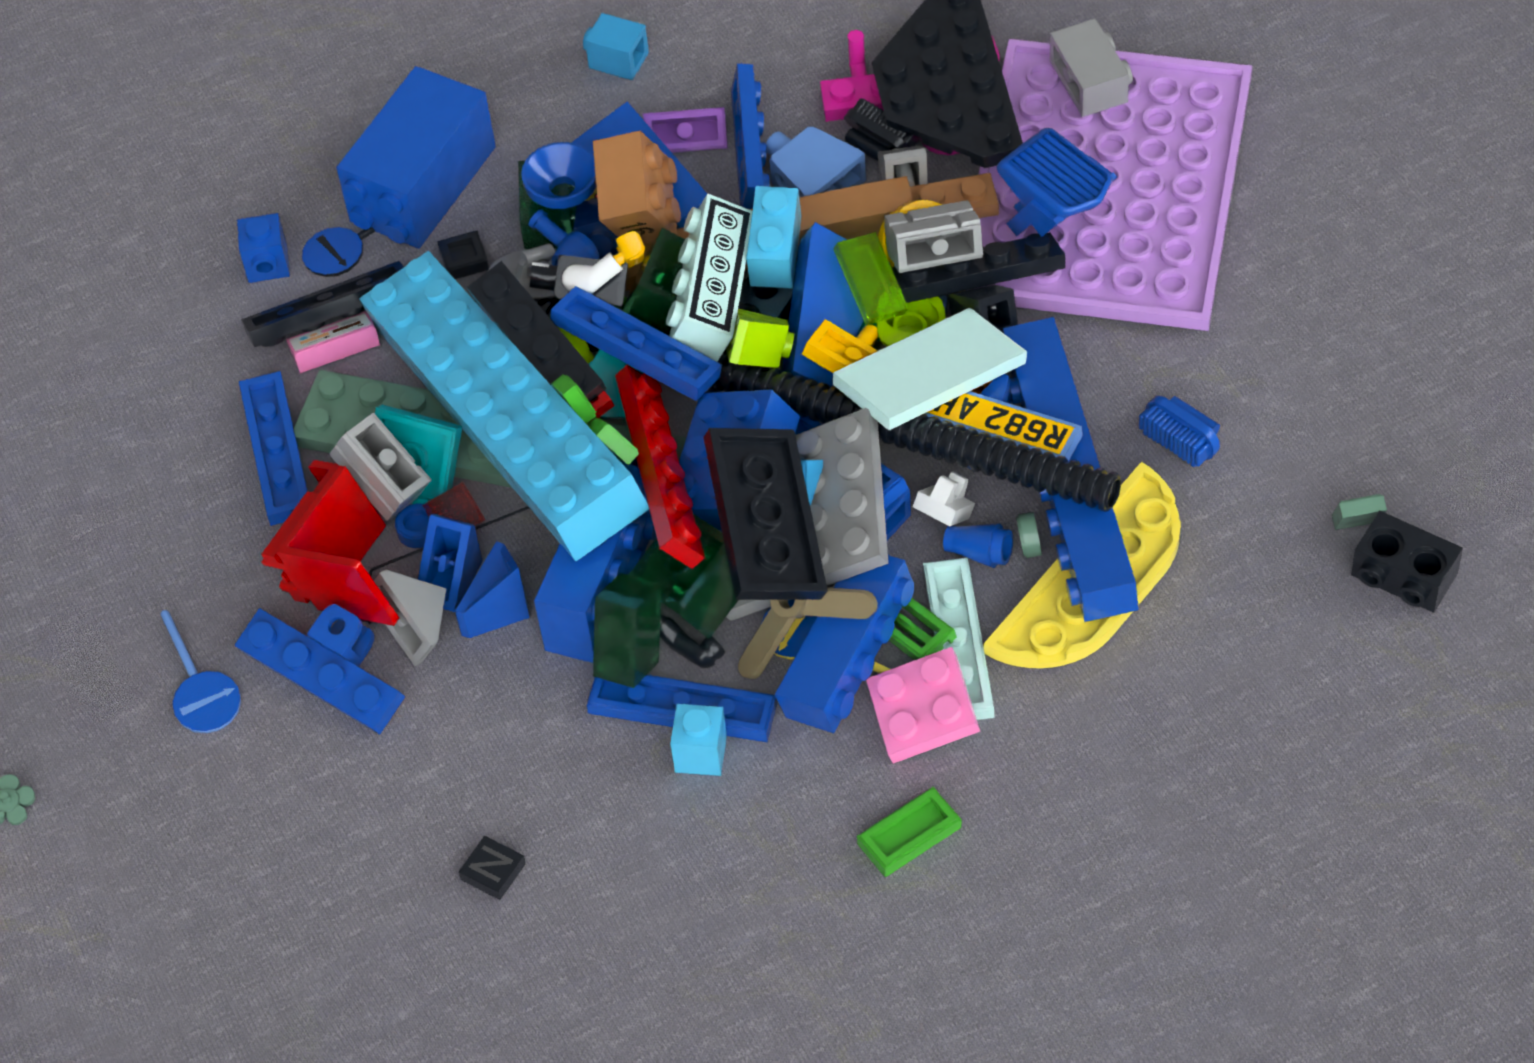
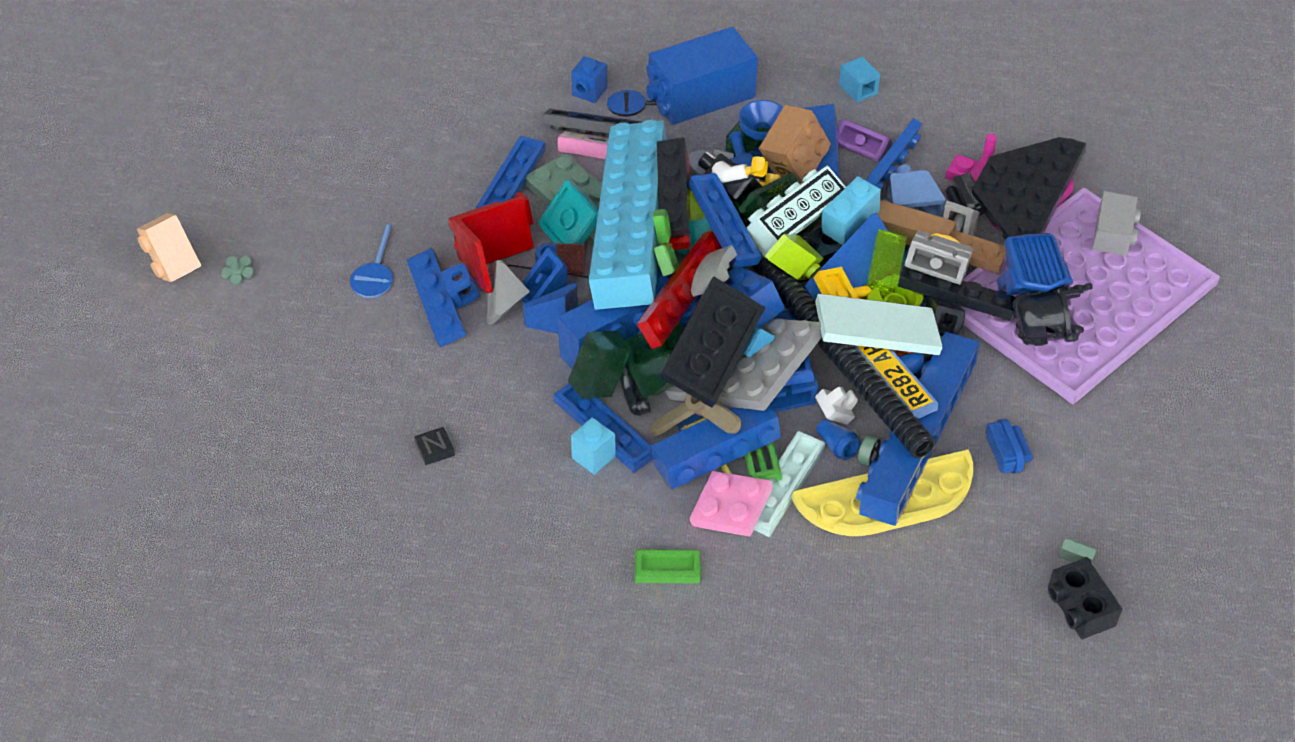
camera: 30 degrees right, 5 degrees down
(380, 466) = (545, 210): light grey brick -> none
(463, 255) = (693, 136): black tile -> none
(682, 420) = (712, 265): none -> light grey slope
(1110, 235) = (1047, 313): none -> black helmet

